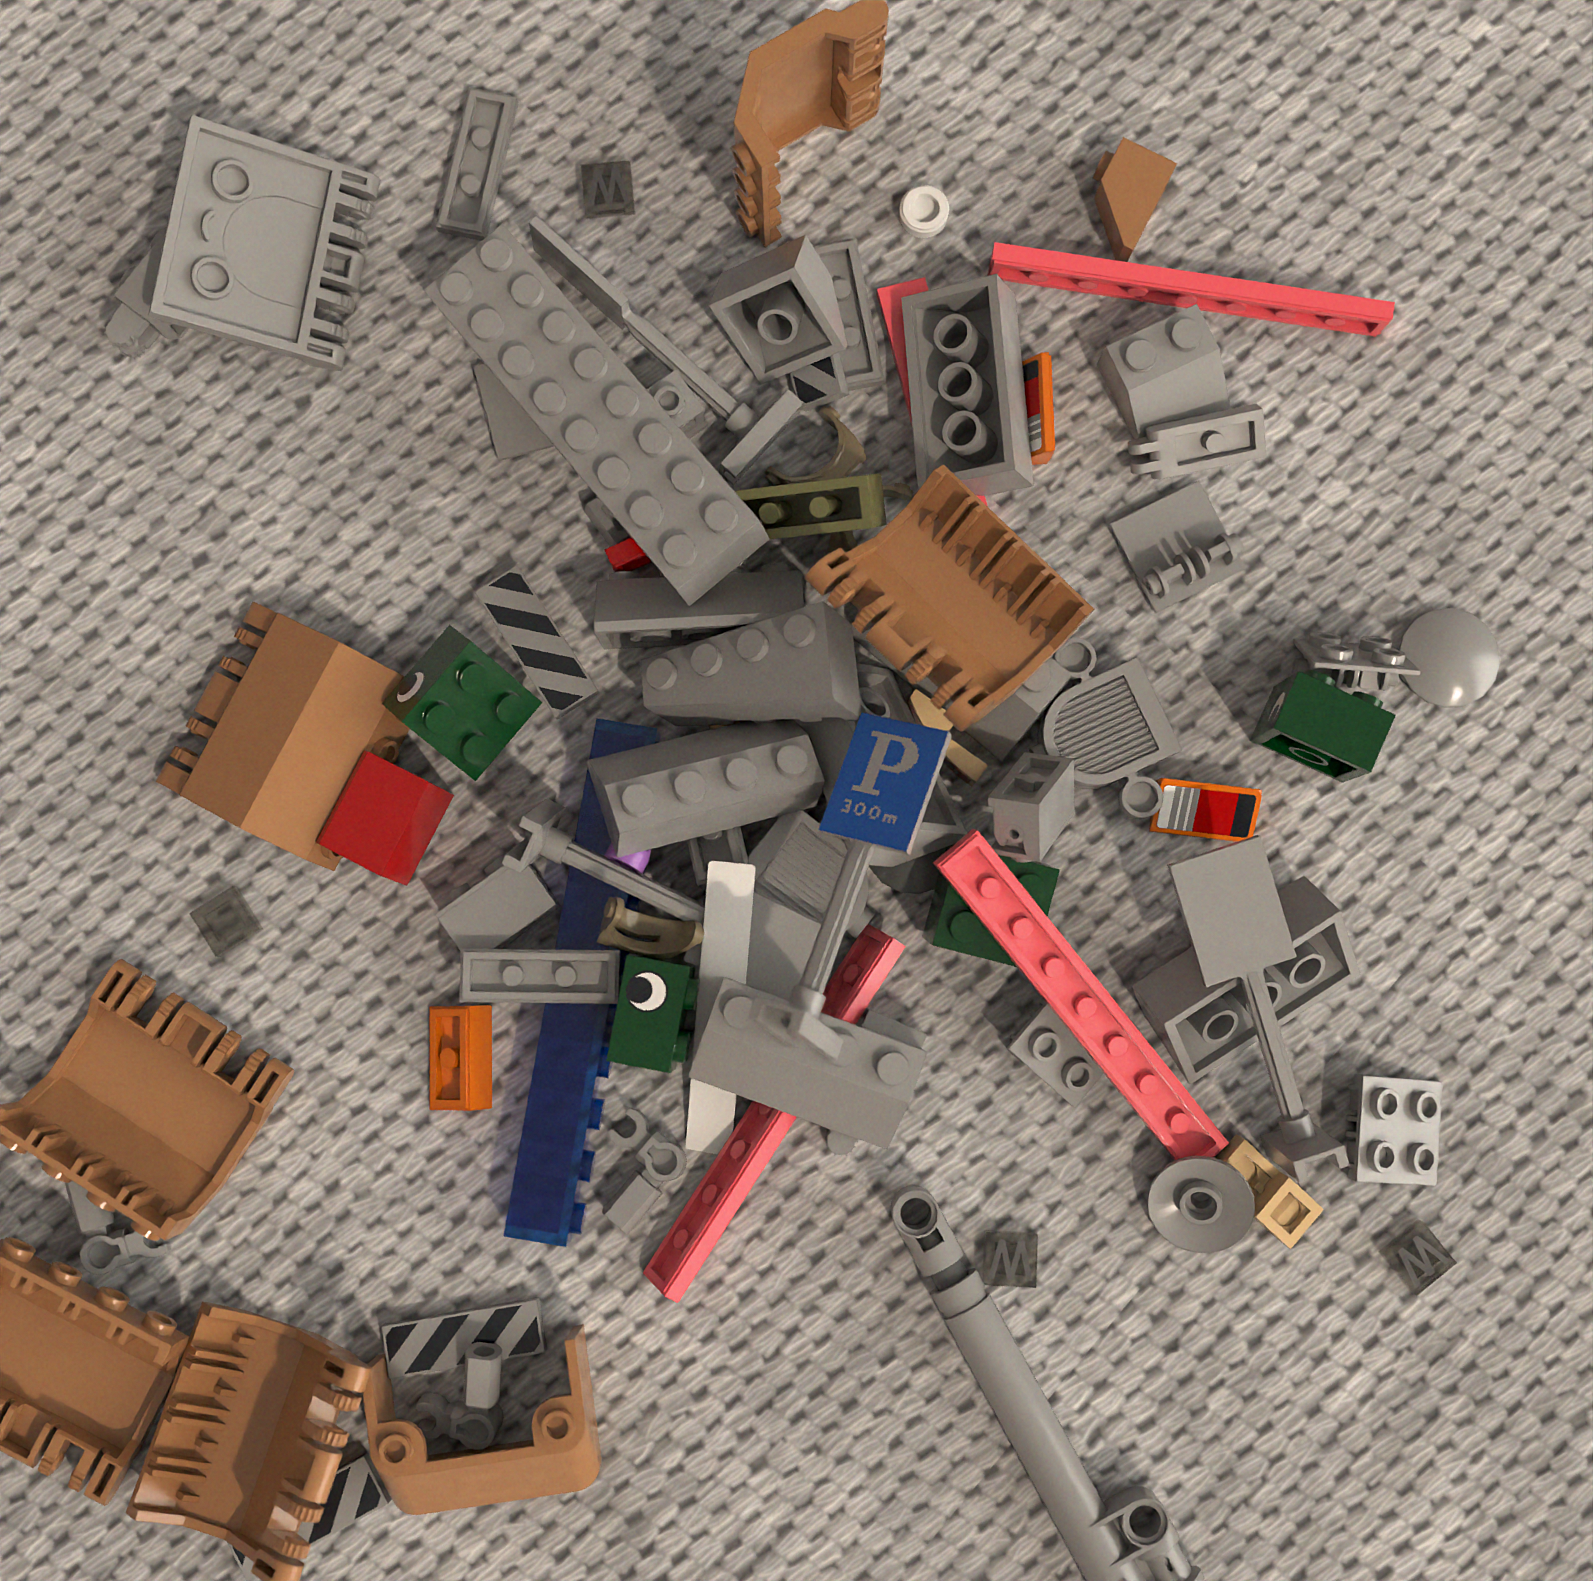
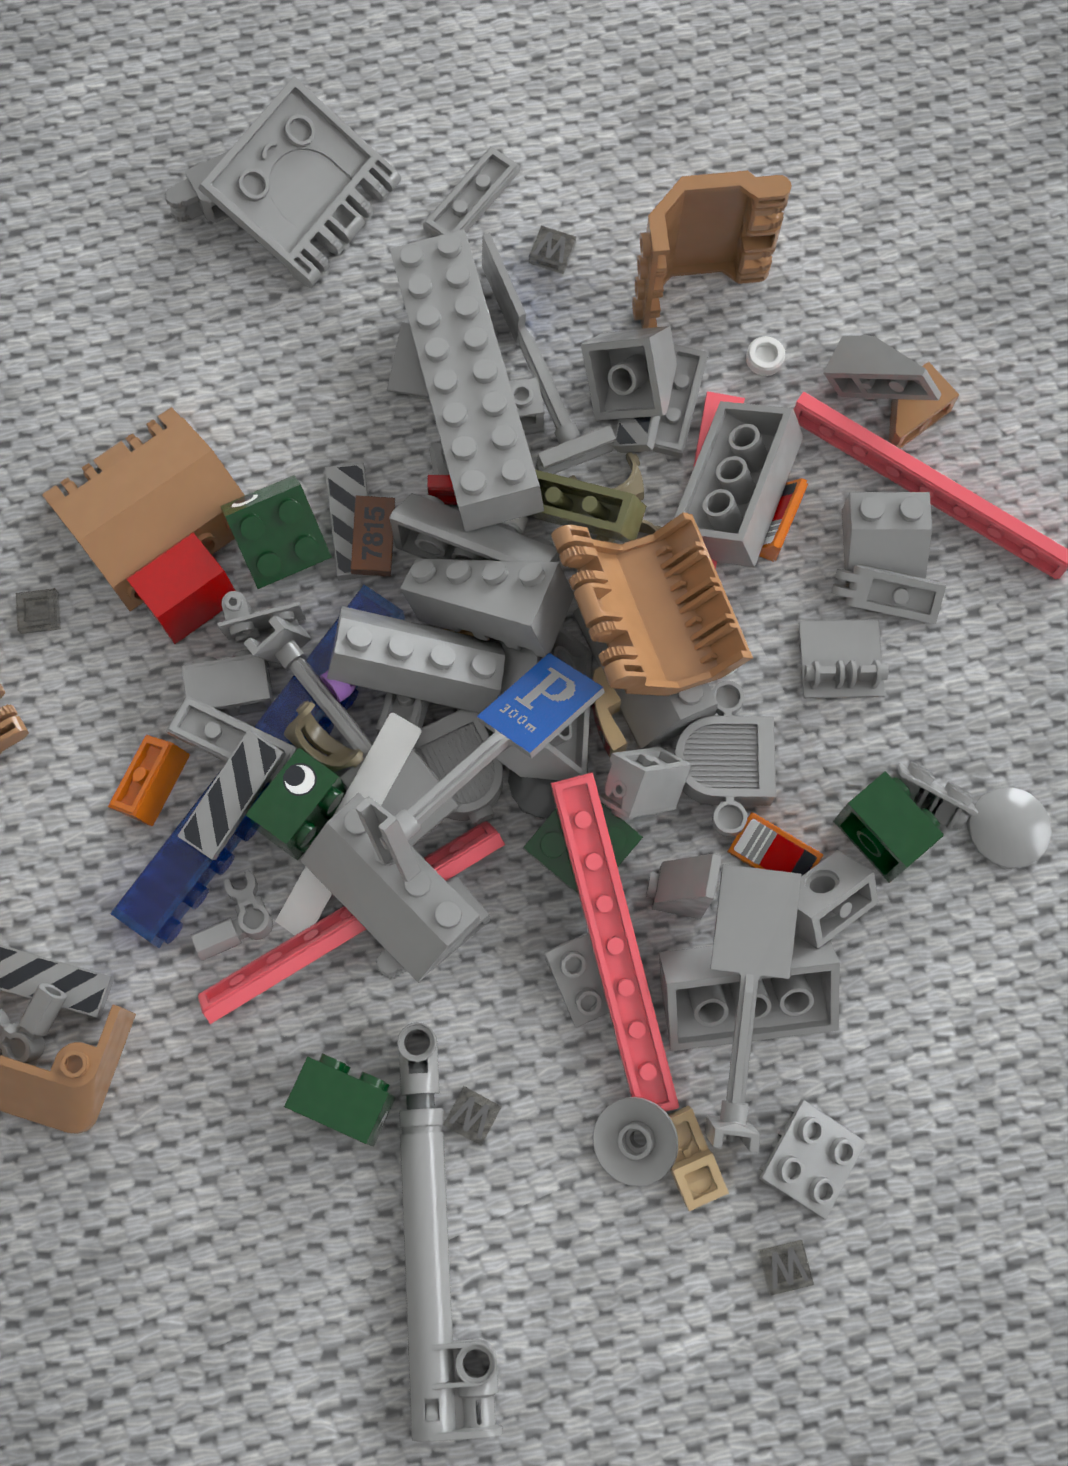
camera: 25 degrees right, 10 degrees down
(478, 829) = (244, 623): none -> light grey hinge
(574, 1040) = (231, 794): none -> light grey tile
(575, 651) = (372, 536): none -> reddish brown tile
(867, 1318) = (341, 1101): none -> dark green brick
(1062, 177) = (873, 369): none -> light grey slope
(1131, 901) = (685, 885): none -> light grey slope
(1313, 822) = (833, 898): none -> light grey brick

